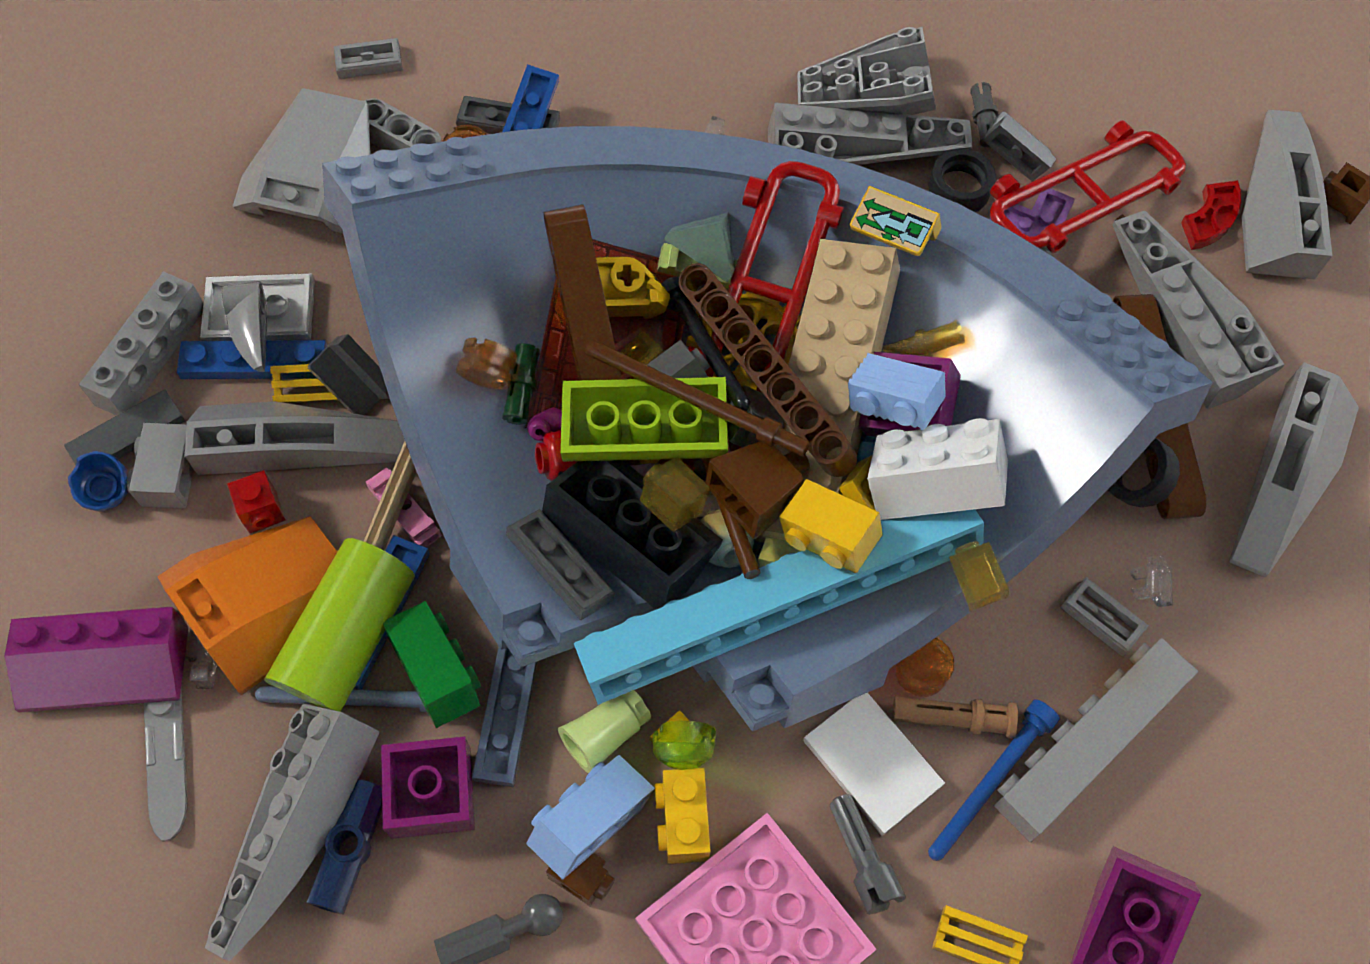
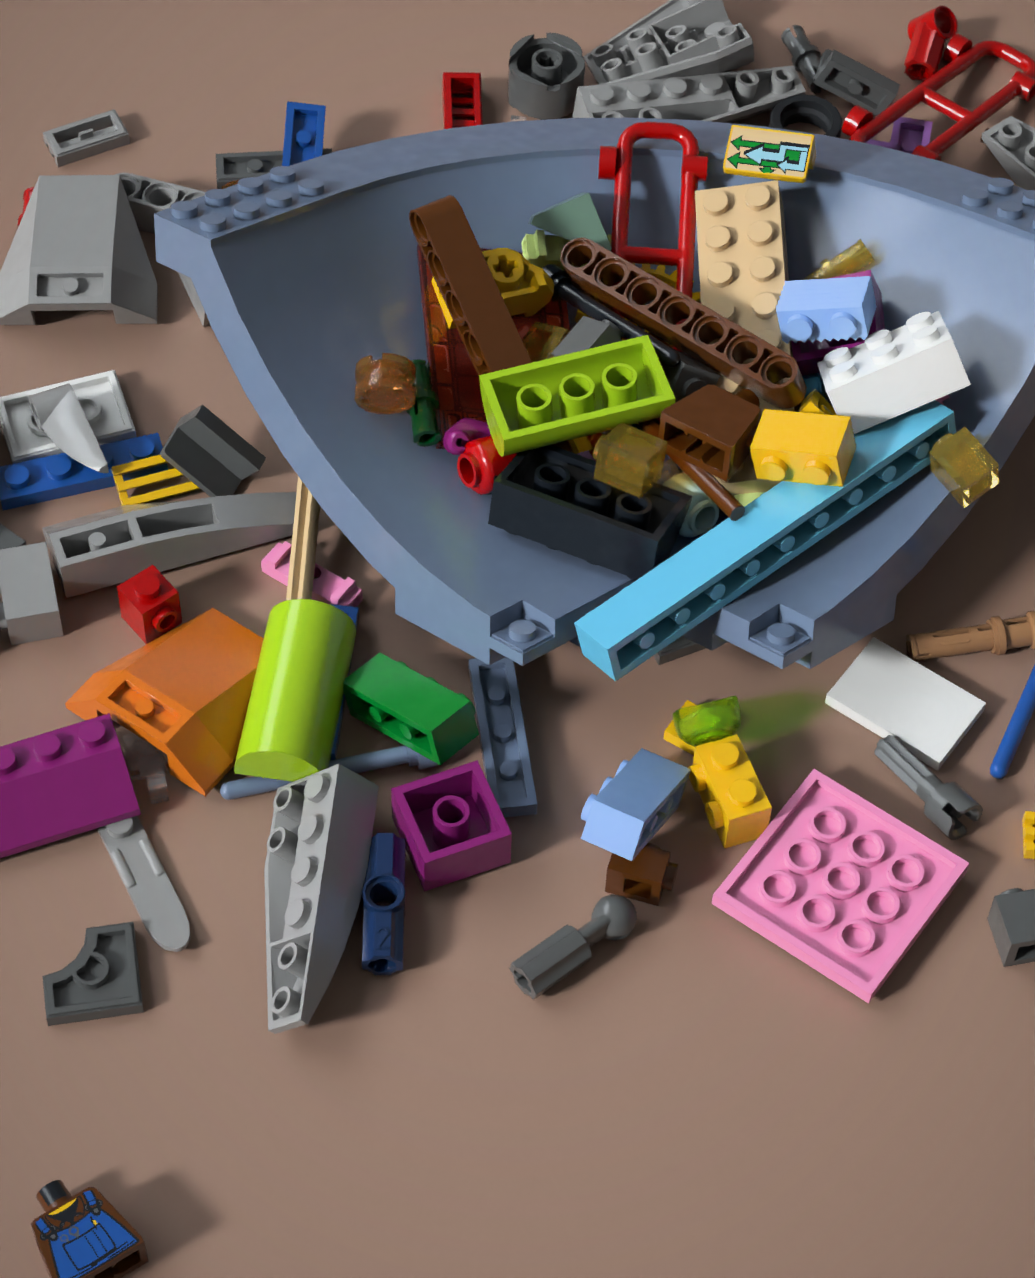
camera: 15 degrees left, 10 degrees down
(92, 851) = (100, 979): none -> dark grey tile
(560, 564) = (527, 561): dark grey tile -> none
(604, 729) = (613, 733): yellowish green plant -> none
(686, 76) = (461, 84): none -> red slope
(754, 84) = (545, 76): none -> dark grey brick
(766, 429) = (710, 370): reddish brown bar -> none
(926, 669) = (928, 602): clear orange wheel -> none
(1096, 117) = (928, 38): none -> red piece

